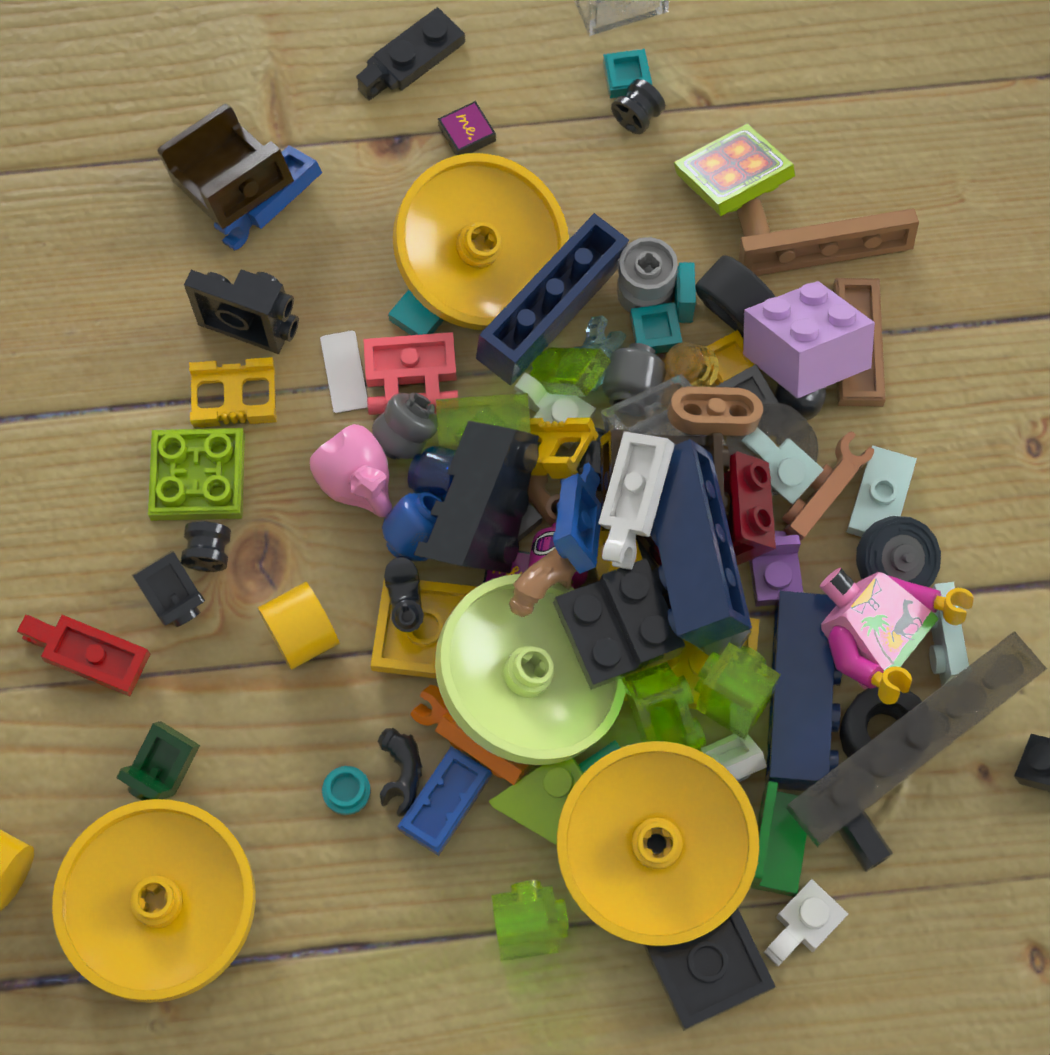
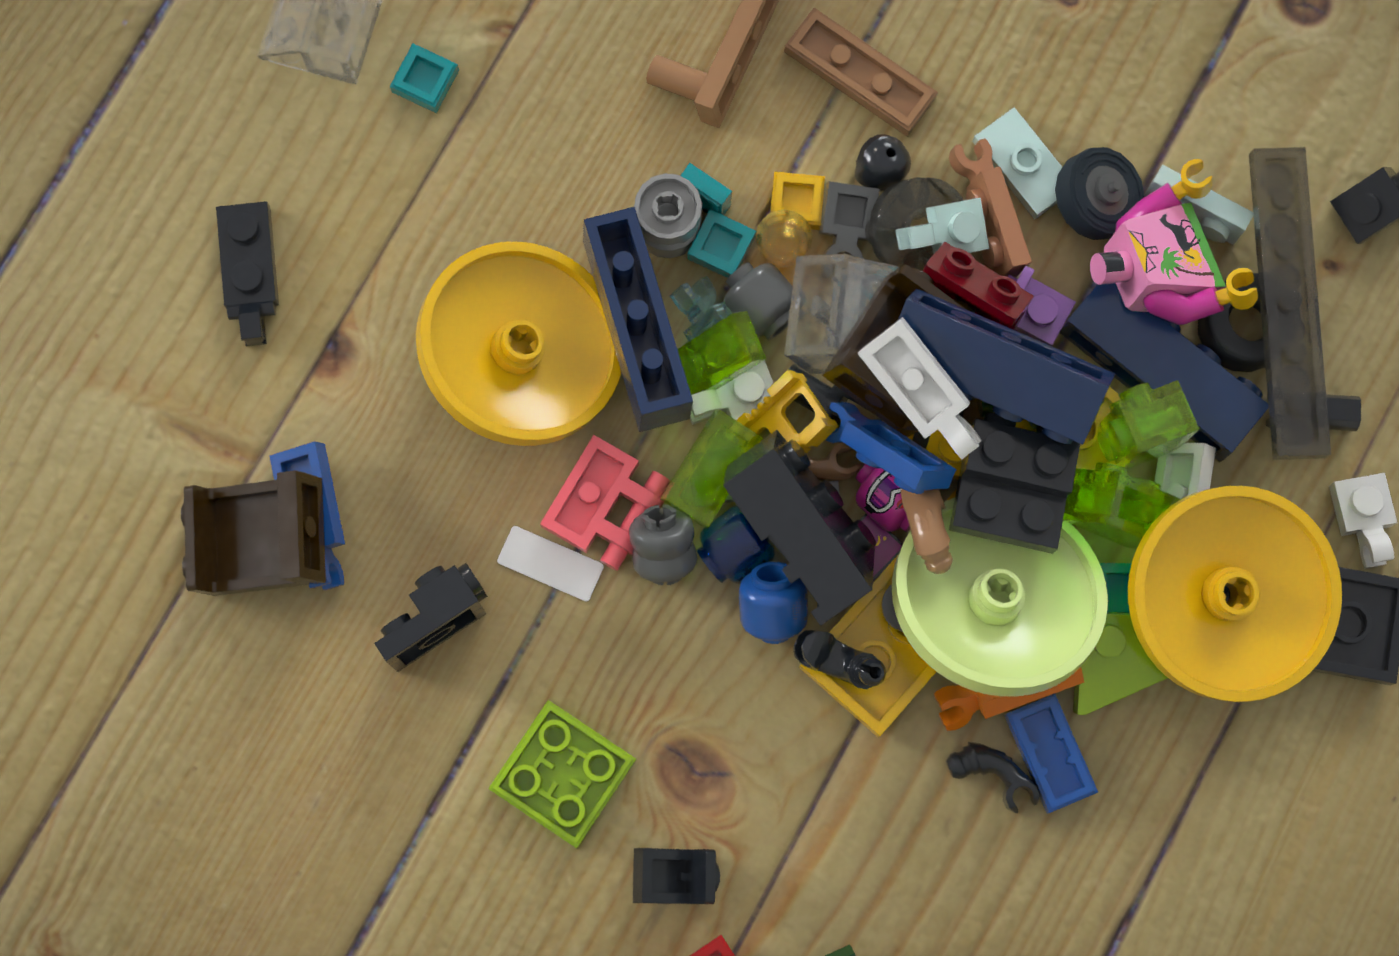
camera: 60 degrees left, 10 degrees up
(205, 546) = (651, 813): black wheel -> none
(233, 378) = (486, 676): yellow piece -> none
(298, 625) = (797, 777): yellow piece -> none
(346, 790) = (979, 836): teal plate -> none
(354, 470) = (677, 623): bright pink piece -> none
(413, 316) = (544, 460): teal tile -> none
(467, 129) = (374, 272): tile -> none
(529, 921) = (1223, 755): clear neon green brick -> none
(638, 106) = (475, 94): black wheel -> none
(715, 410) = (868, 257): medium nougat plate -> none
(730, 289) = (748, 148): black tyre -> none
(734, 169) = (612, 55): tile -> none
(780, 844) = (1287, 478): green panel -> none
(808, 338) = (844, 117): lavender brick -> none

